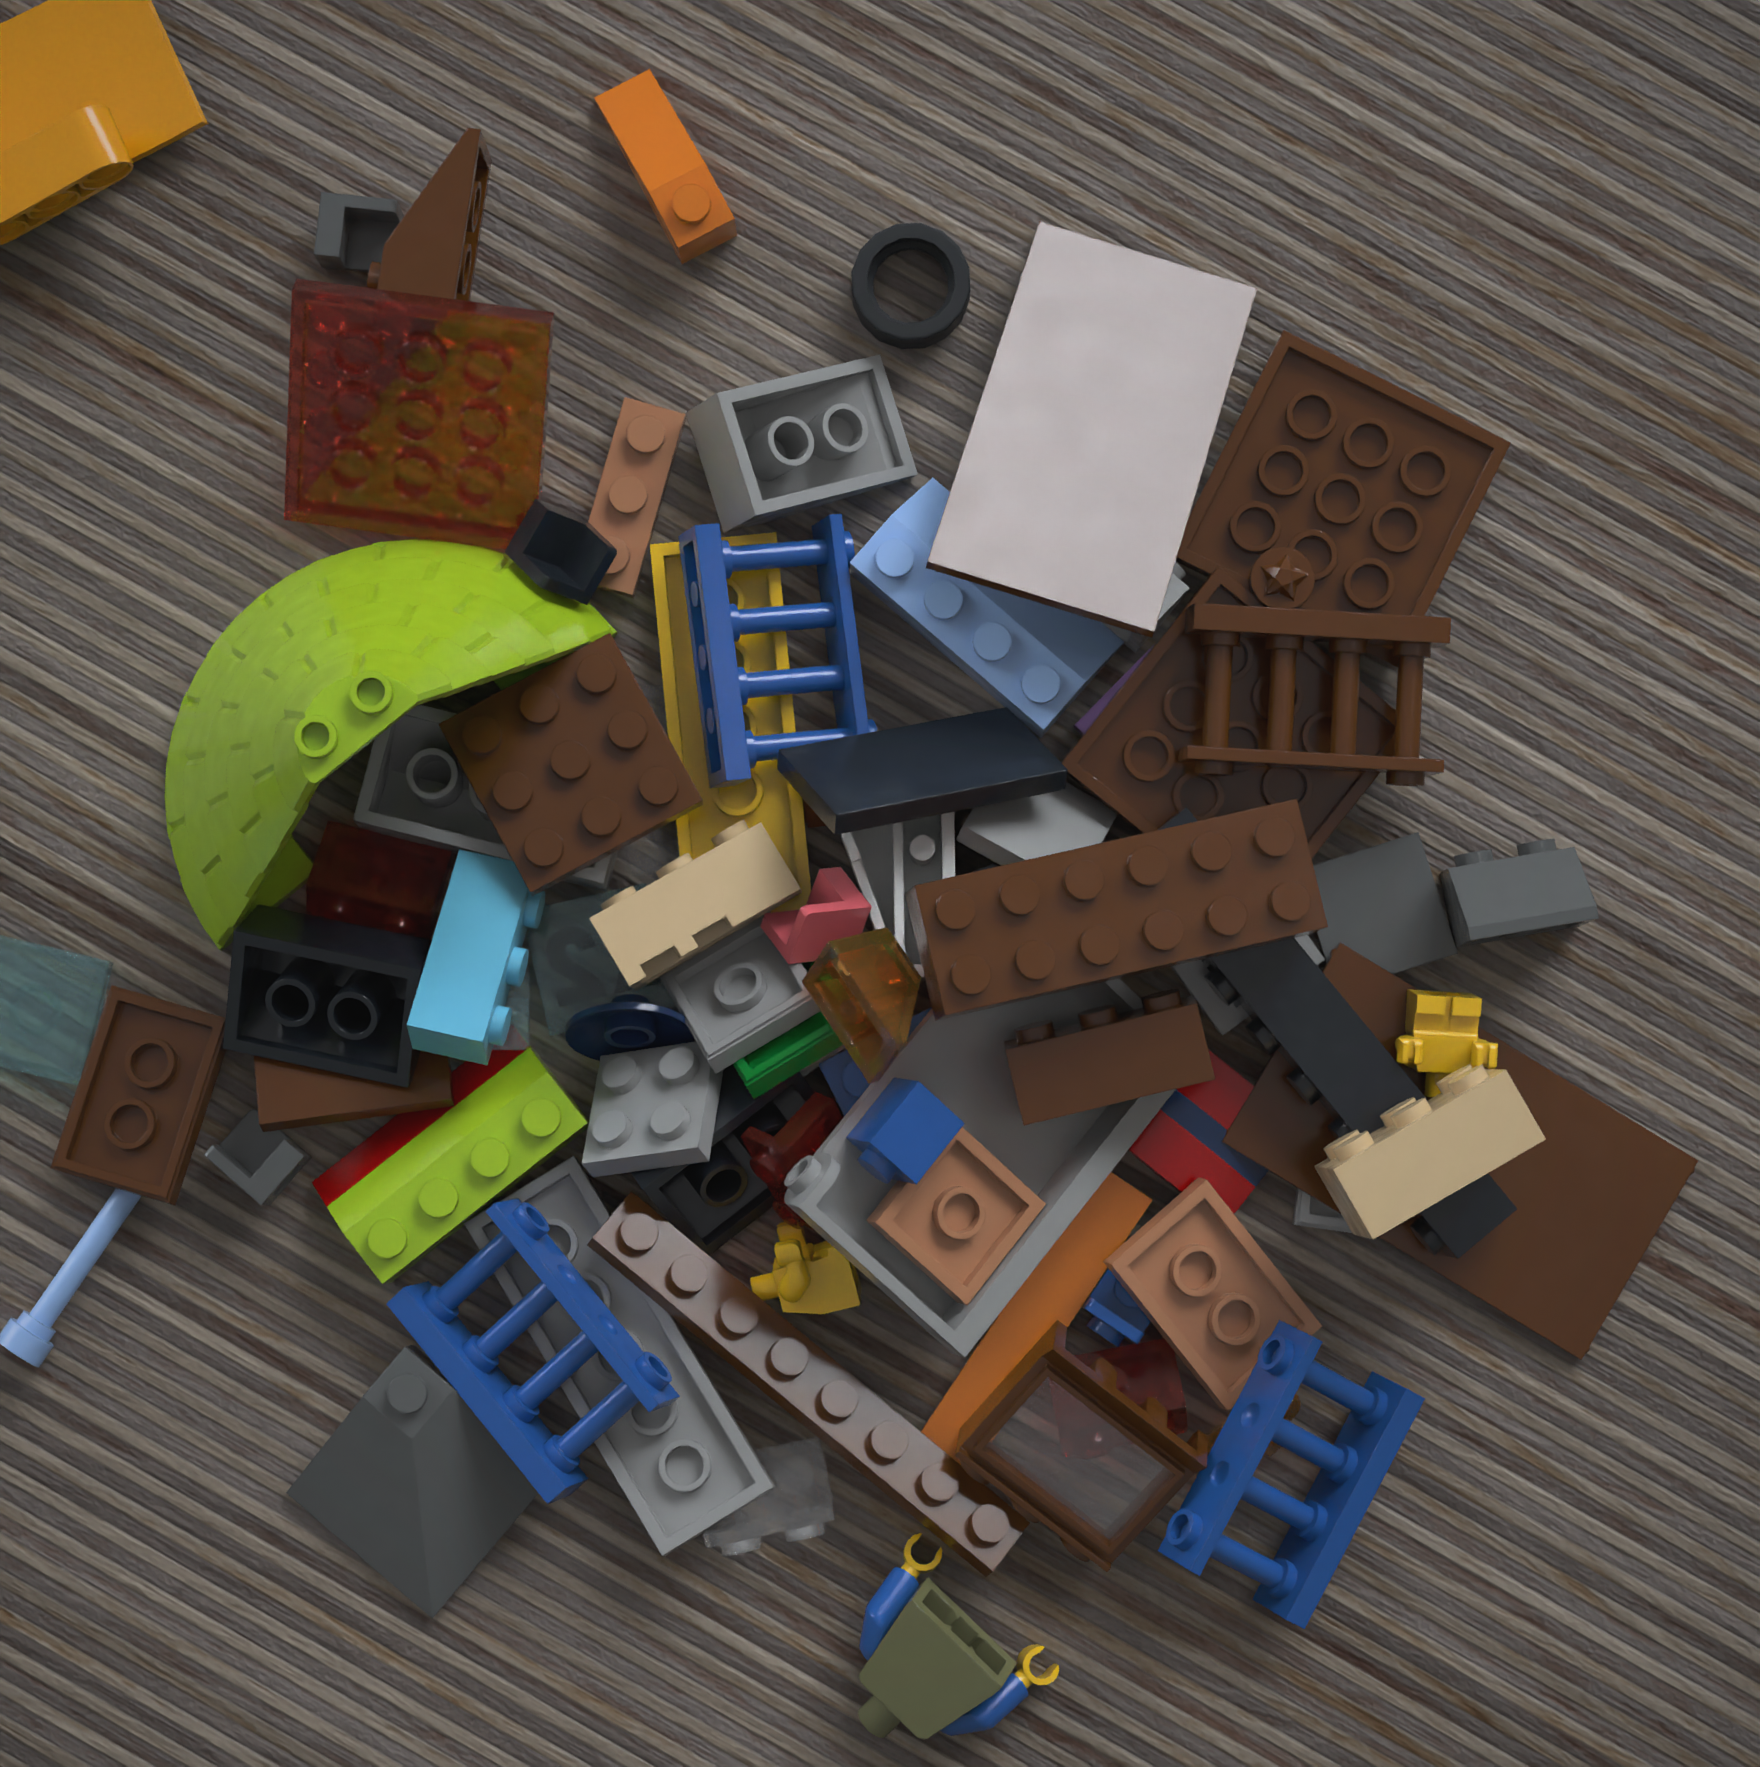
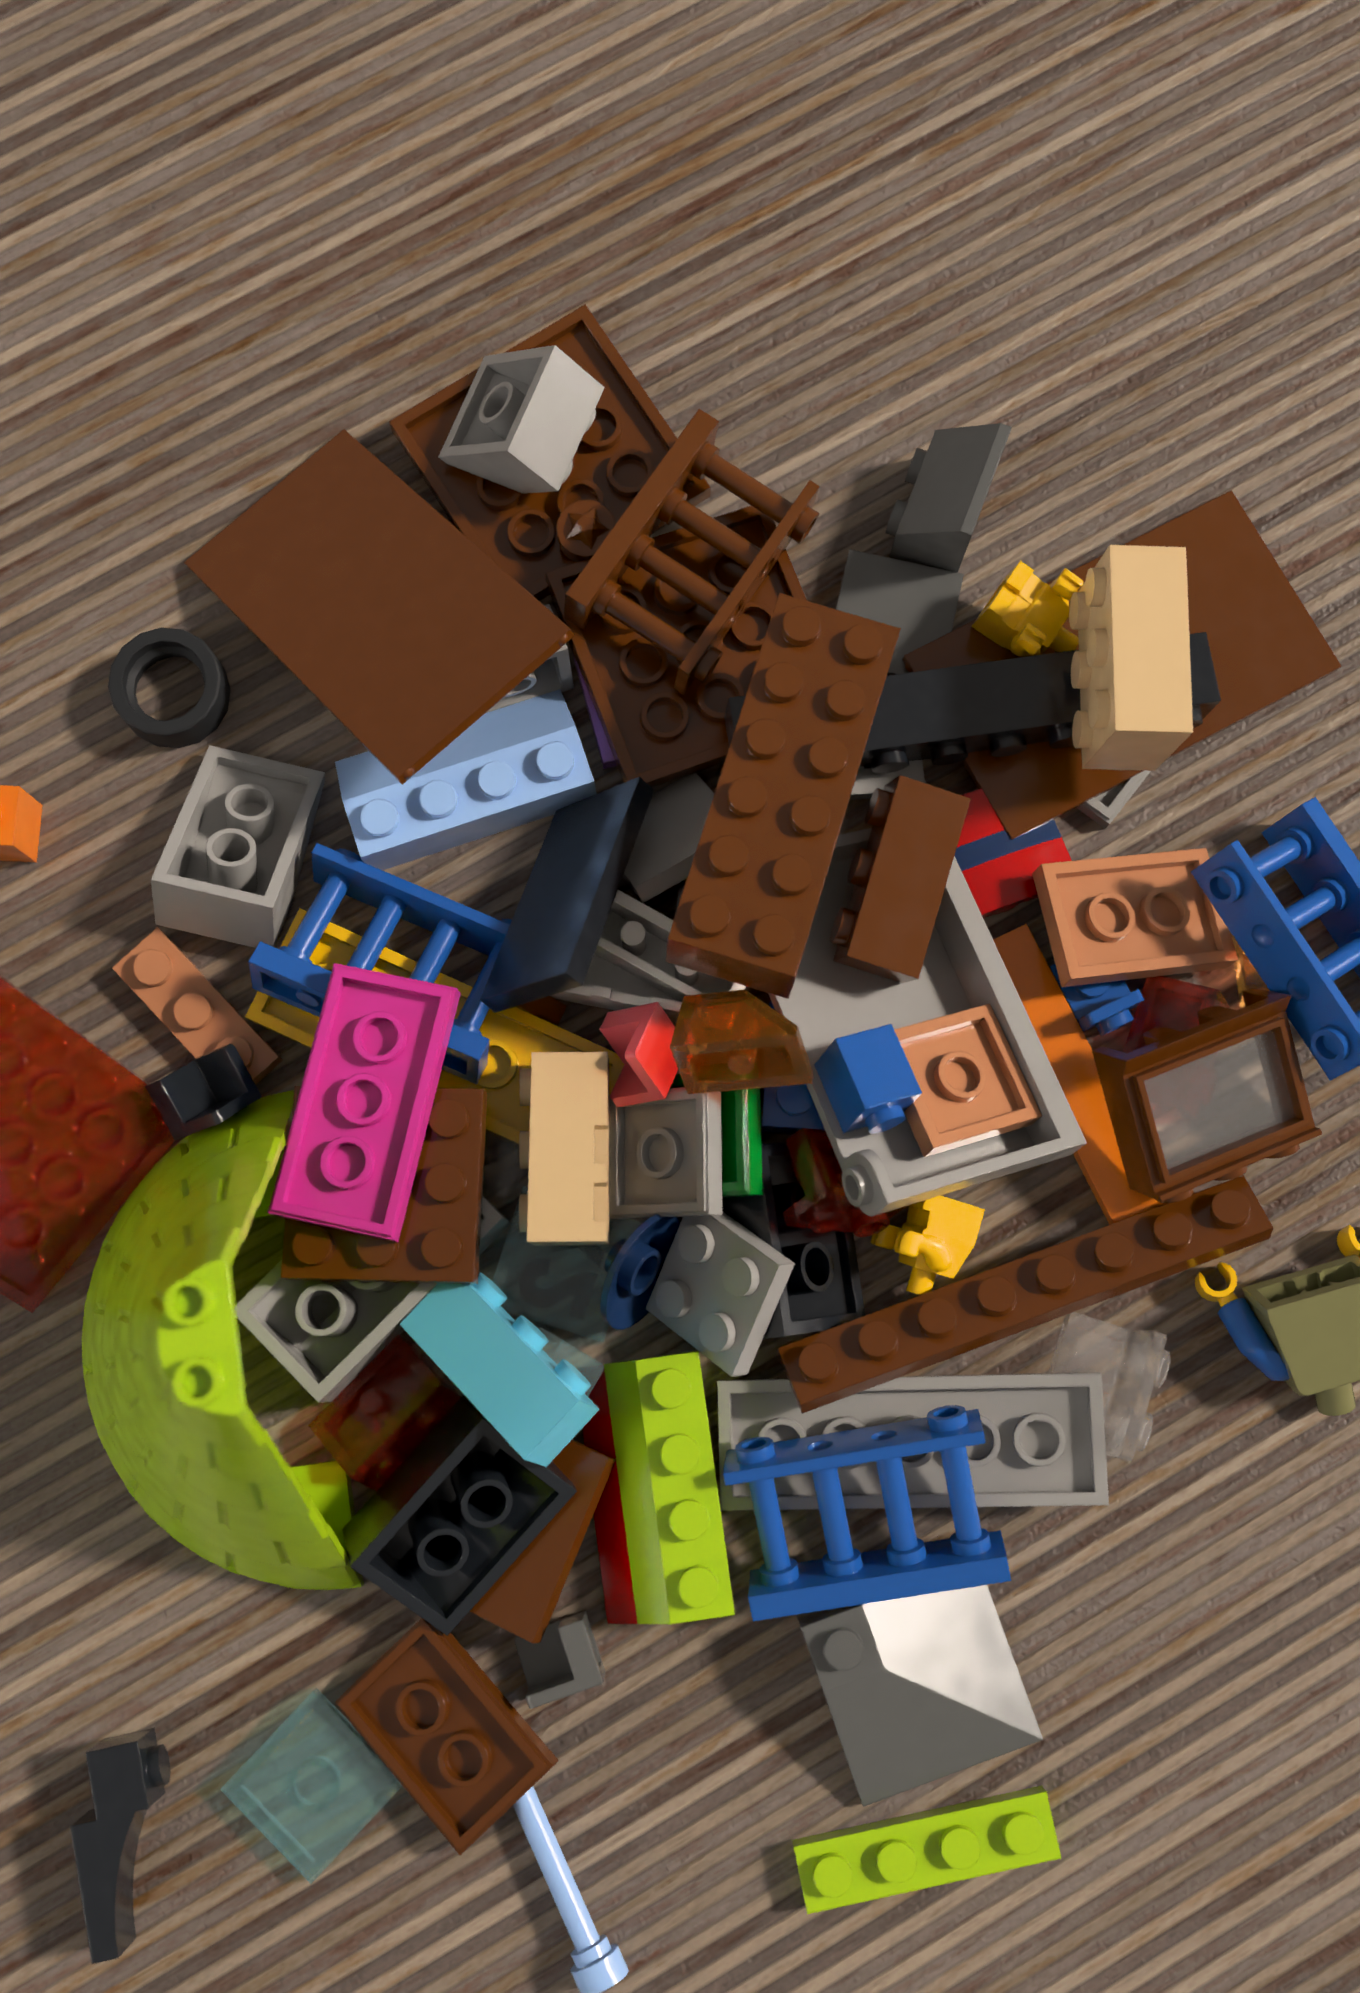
camera: 60 degrees left, 5 degrees down
(281, 1567) = (926, 1849): none -> lime plate
(630, 705) = (365, 1102): none -> dark pink tile
(1350, 457) = (523, 419): none -> light grey slope

